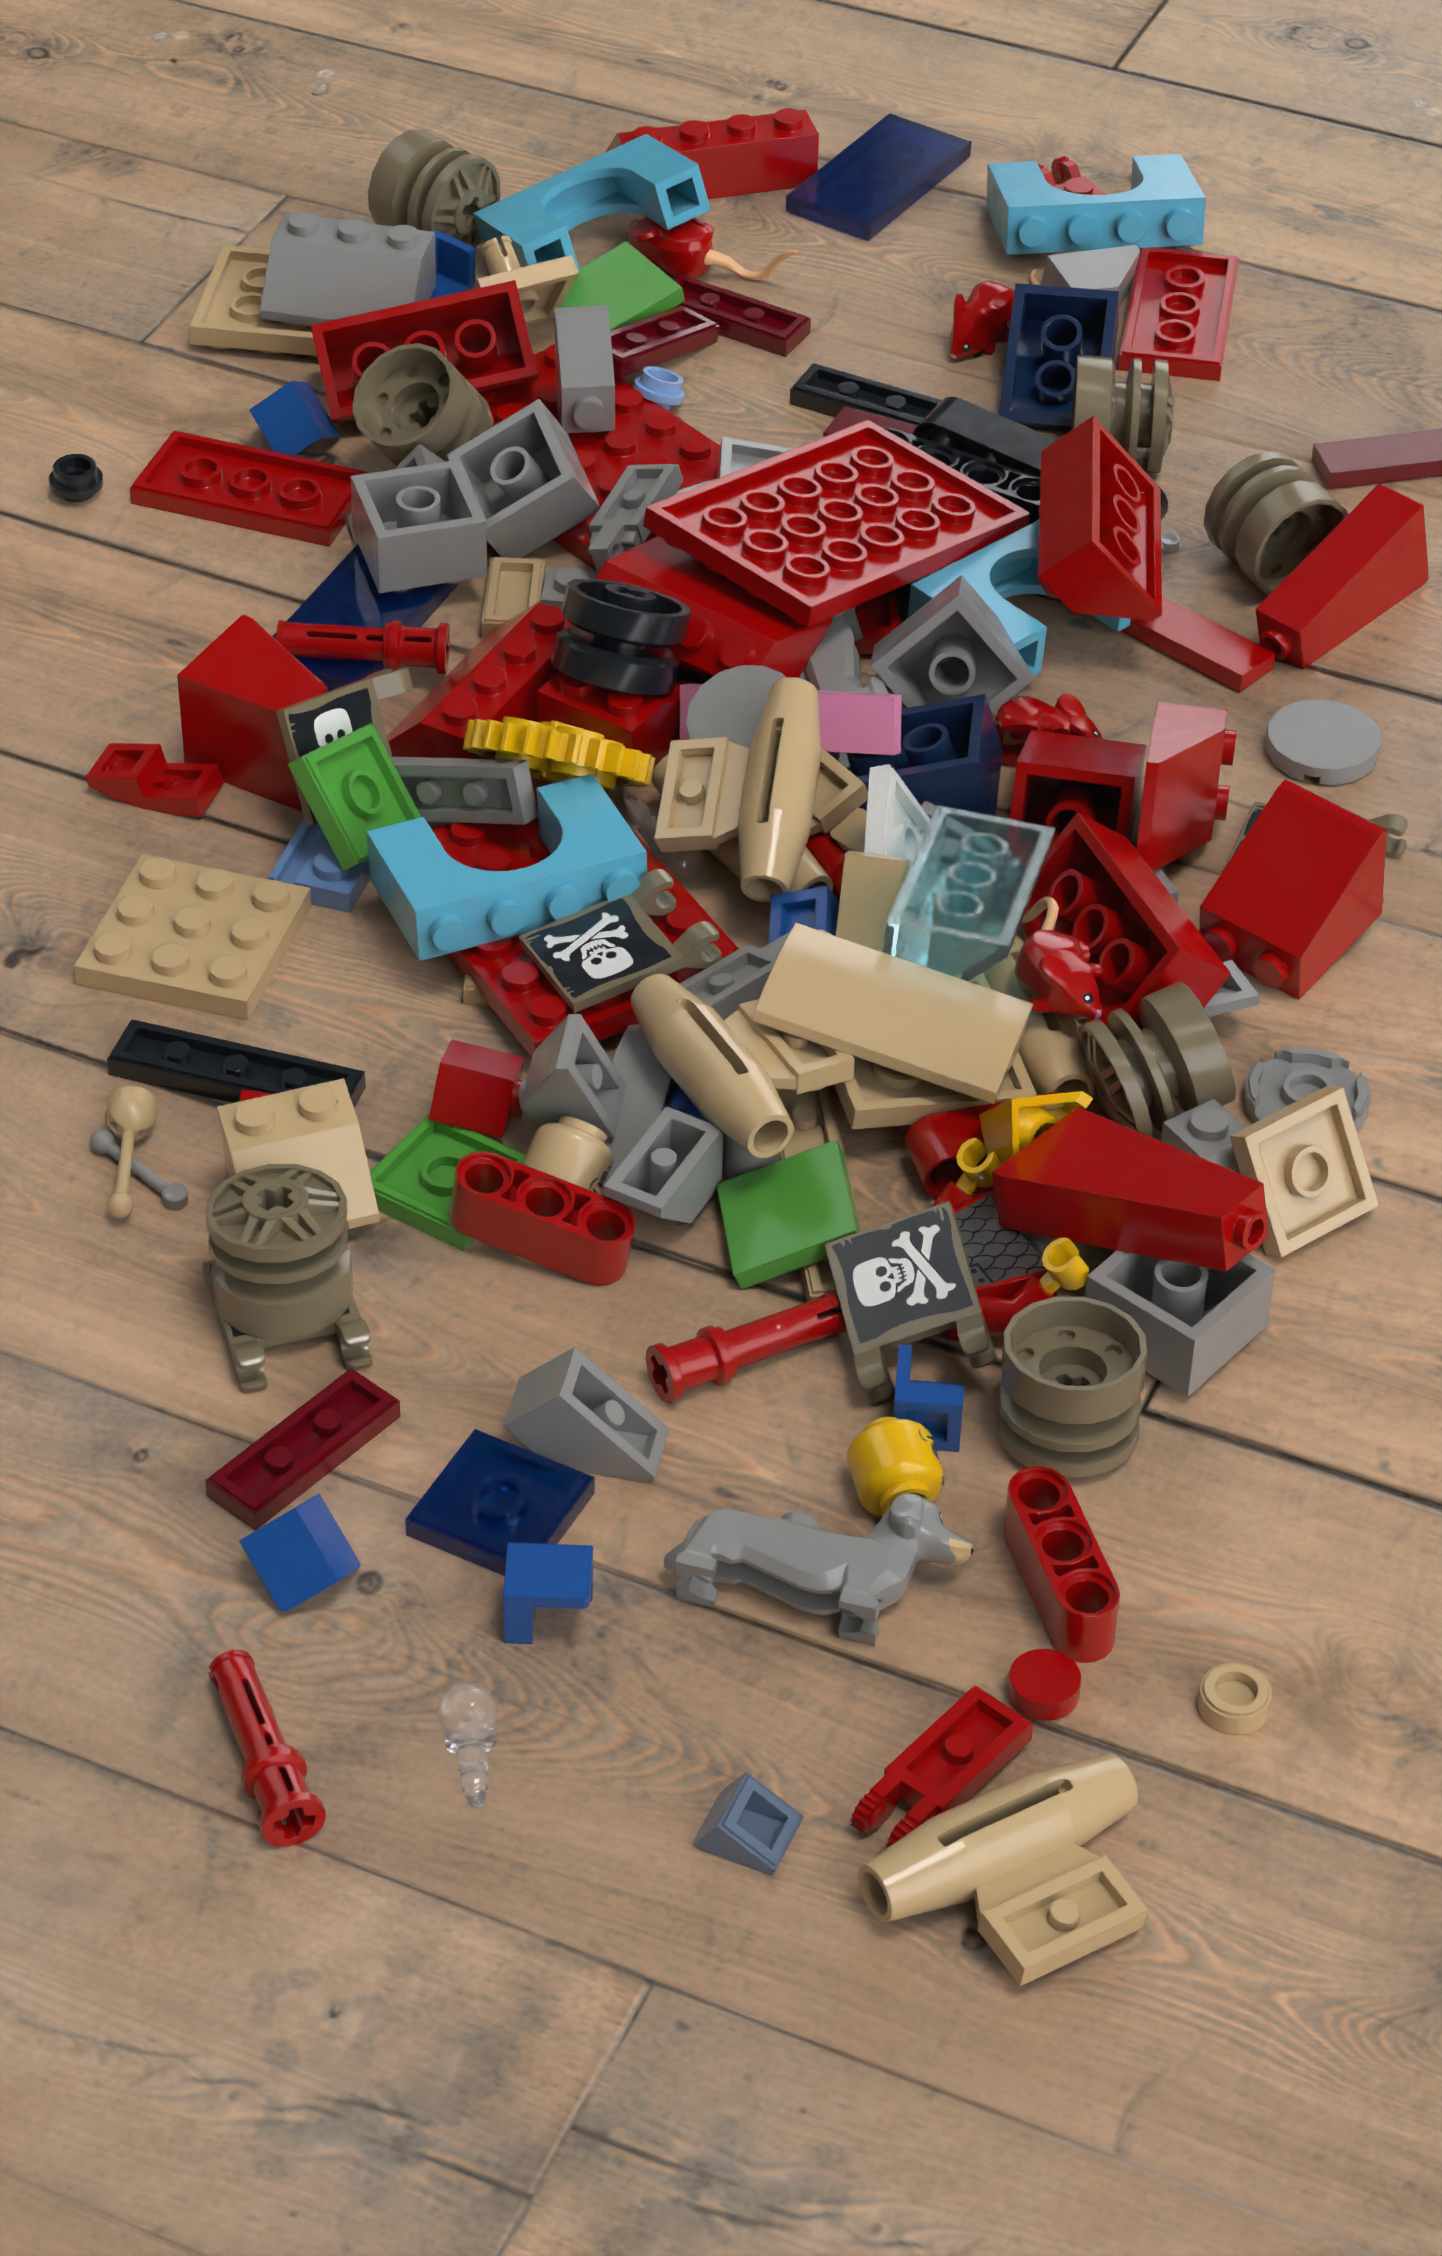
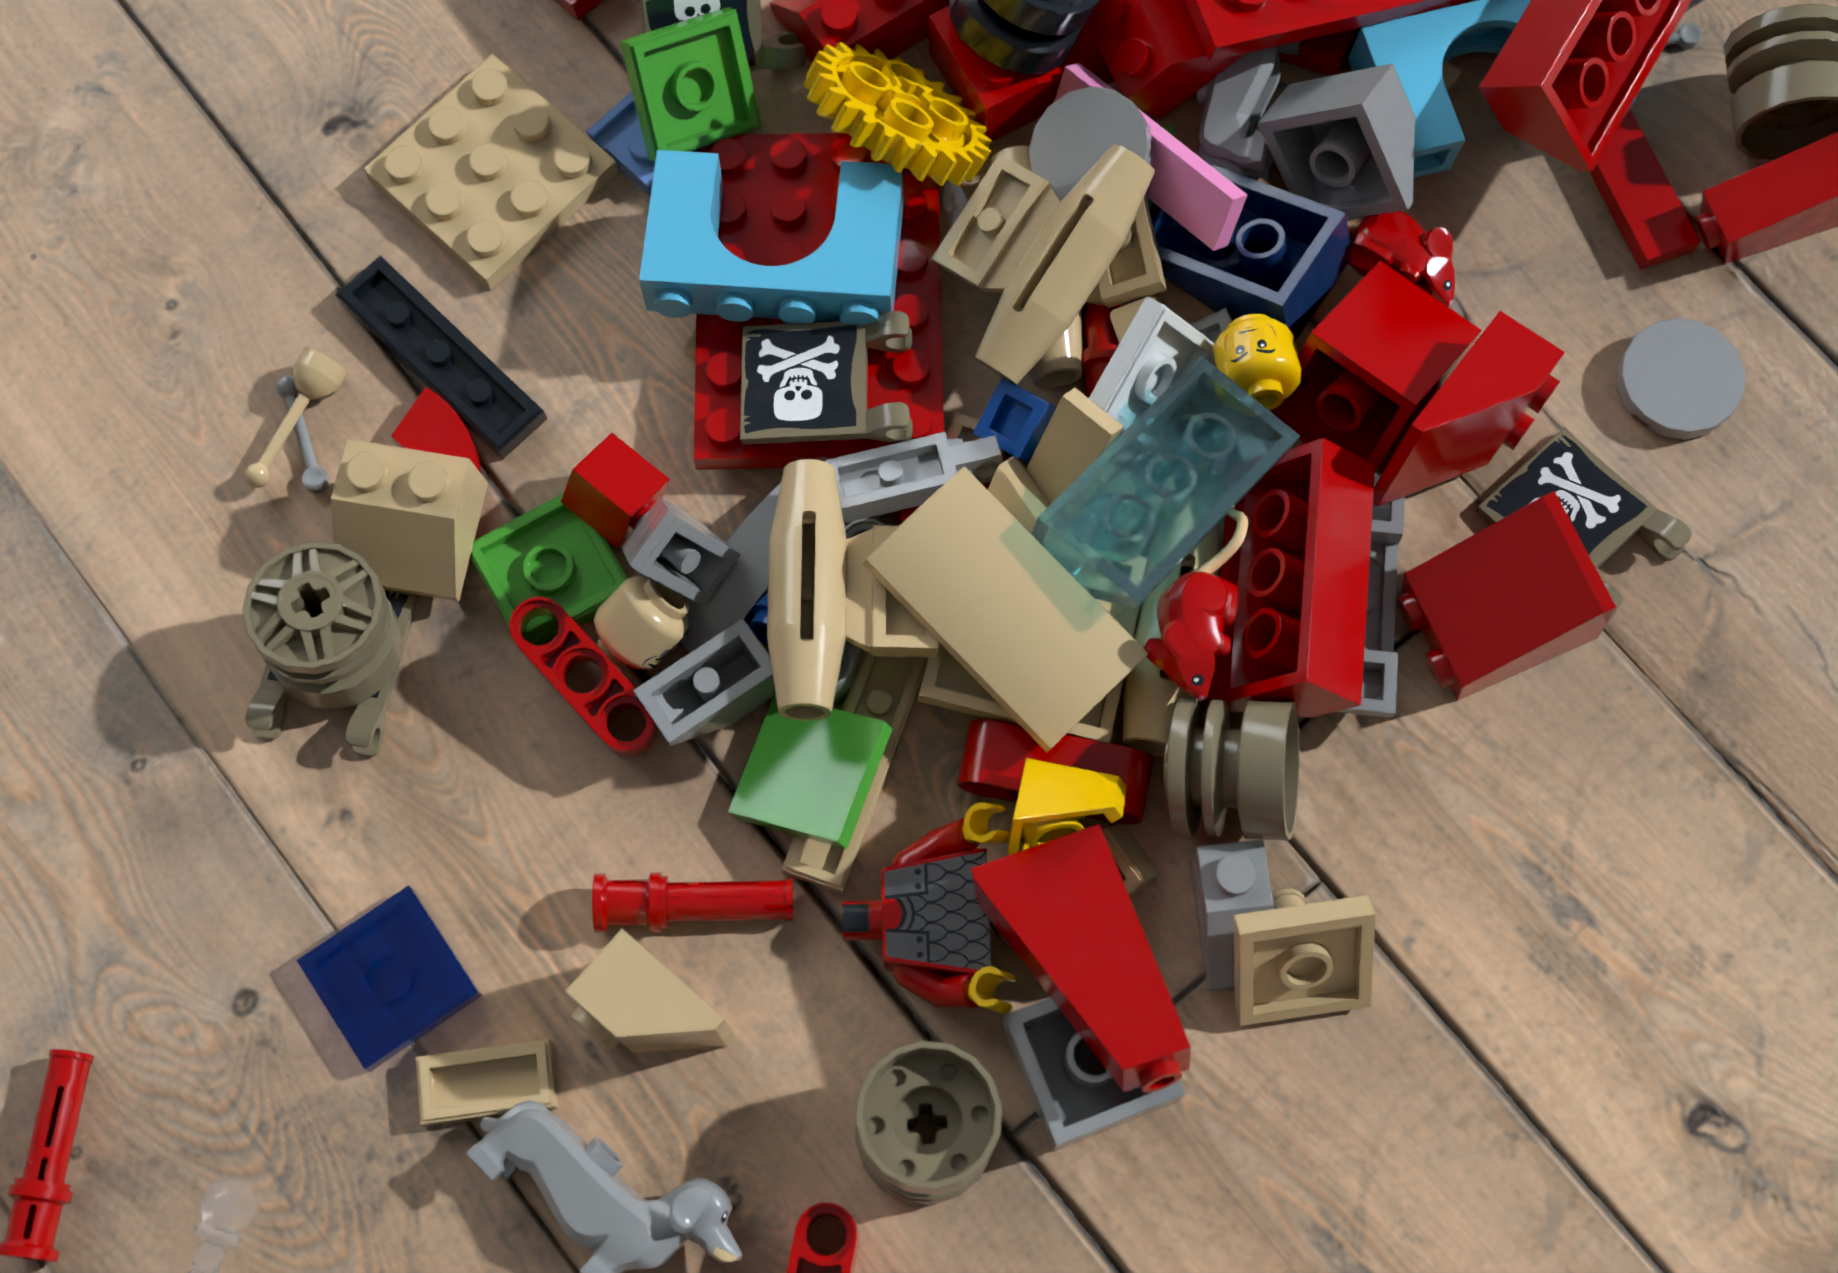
camera: 30 degrees right, 30 degrees up
(300, 1553) = (187, 960): blue panel -> none
(302, 1449) = (264, 829): dark red tile -> none
(469, 789) = (793, 117): light grey plate -> none
(543, 1578) = (355, 1111): blue panel -> none
(585, 1420) = (499, 933): light grey slope -> none
(634, 1545) = (485, 1081): none -> tan tile
(772, 1398) = (642, 1004): none -> tan slope
(894, 1460) = (734, 1119): yellow head -> none
(906, 1286) = (849, 929): flag -> none
(930, 1403) = (809, 1050): blue panel -> none
(984, 792) = (1259, 358): none -> yellow head
(1298, 1073) = (1385, 835): light grey tile -> none

